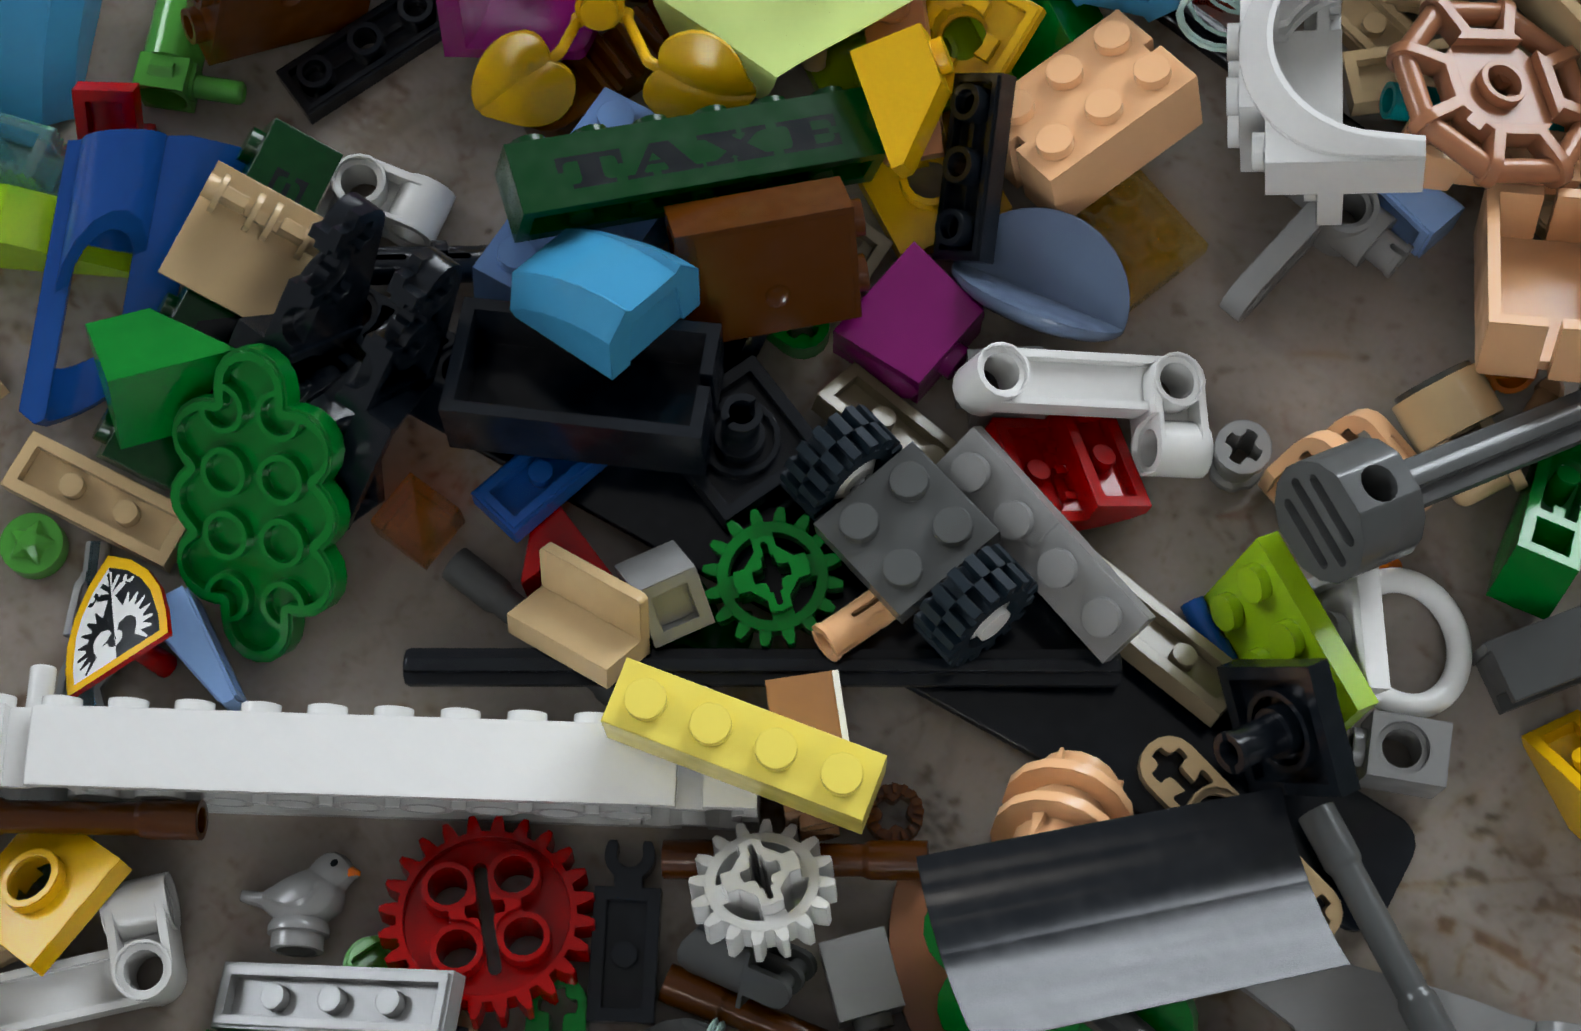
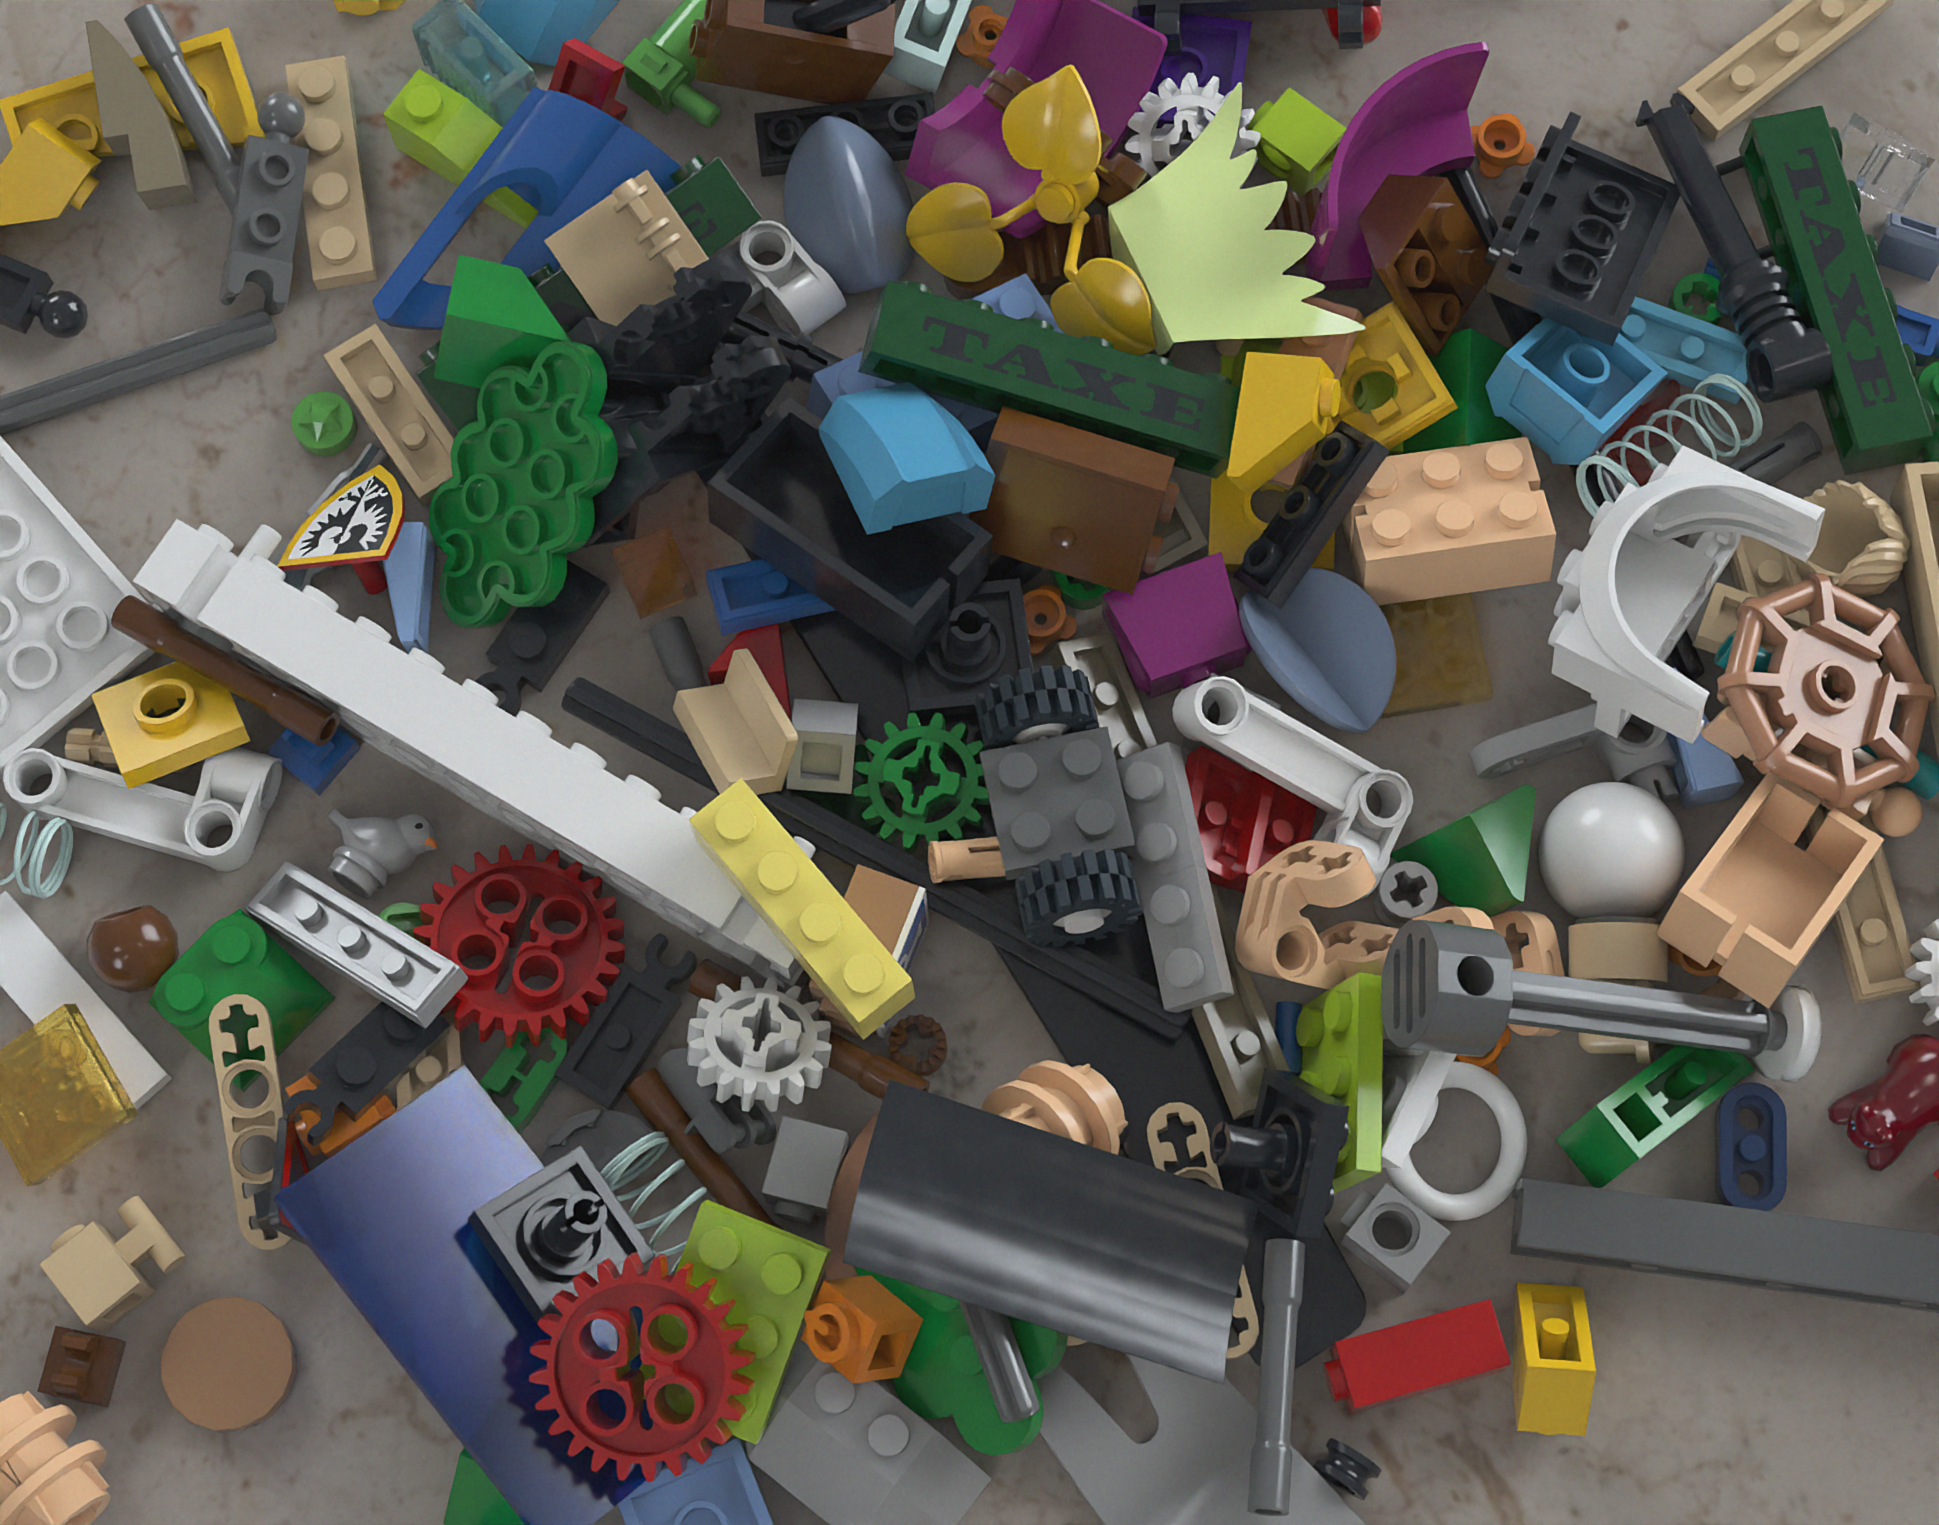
camera: 30 degrees right, 0 degrees up
(195, 859) = (314, 764): none -> blue tile
(345, 635) = (541, 637): none -> black plate
(408, 108) = (848, 205): none -> sand blue piece
(803, 379) = (1059, 625): none -> orange plate
(1169, 550) = (1275, 893): none -> light nougat piece
(1282, 383) = (1482, 854): none -> green slope
(1387, 326) = (1611, 852): none -> white piece
(1480, 977) = (1347, 1469): none -> black bush
(1482, 847) = (1416, 1357): none -> red brick

